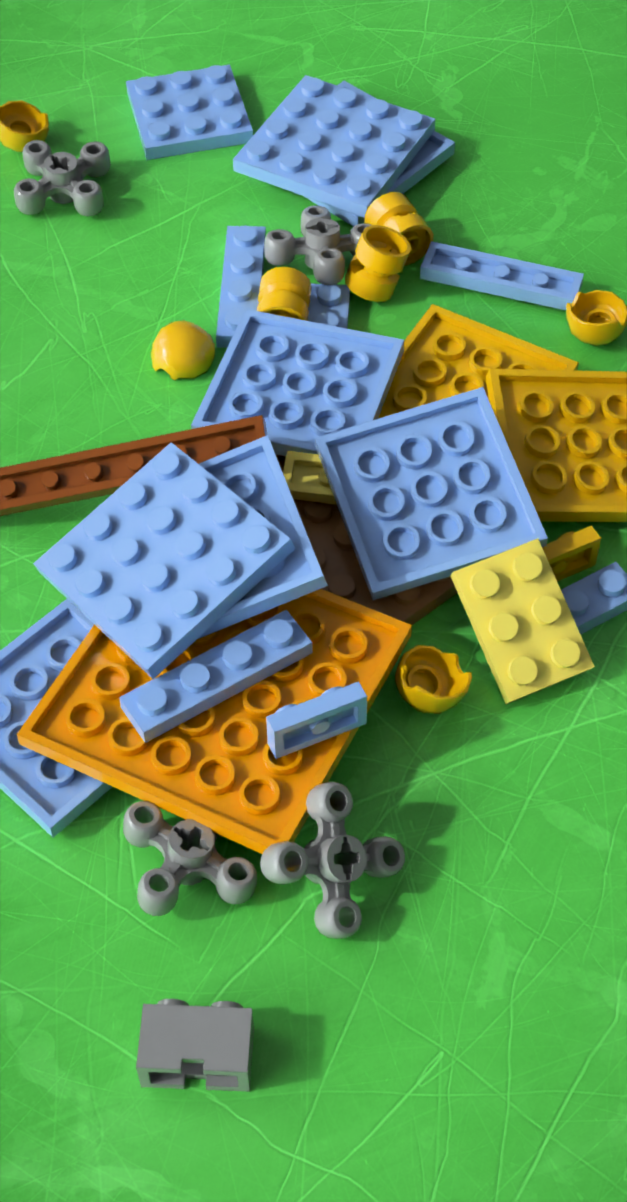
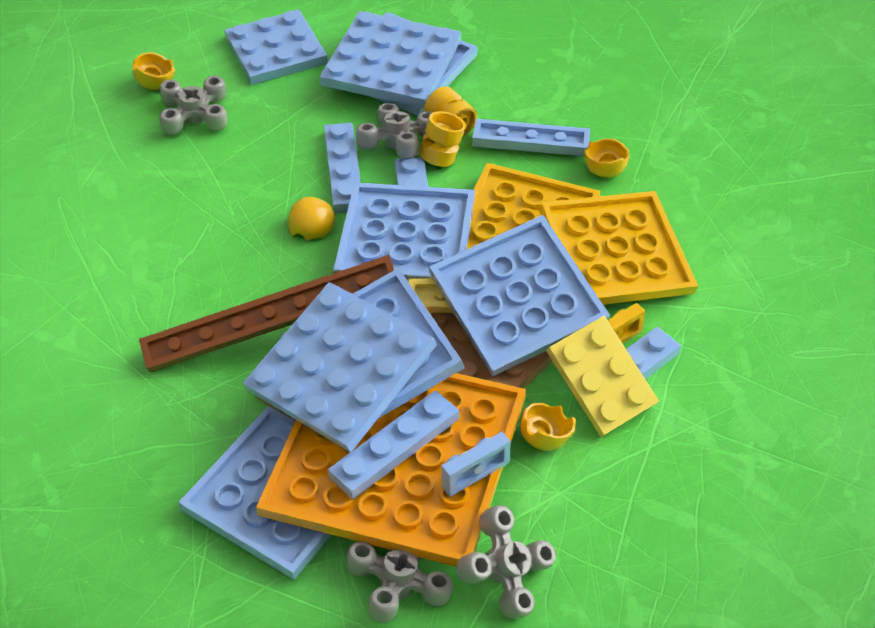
camera: 10 degrees left, 5 degrees down
(285, 293) = (378, 167): yellow wheel -> none

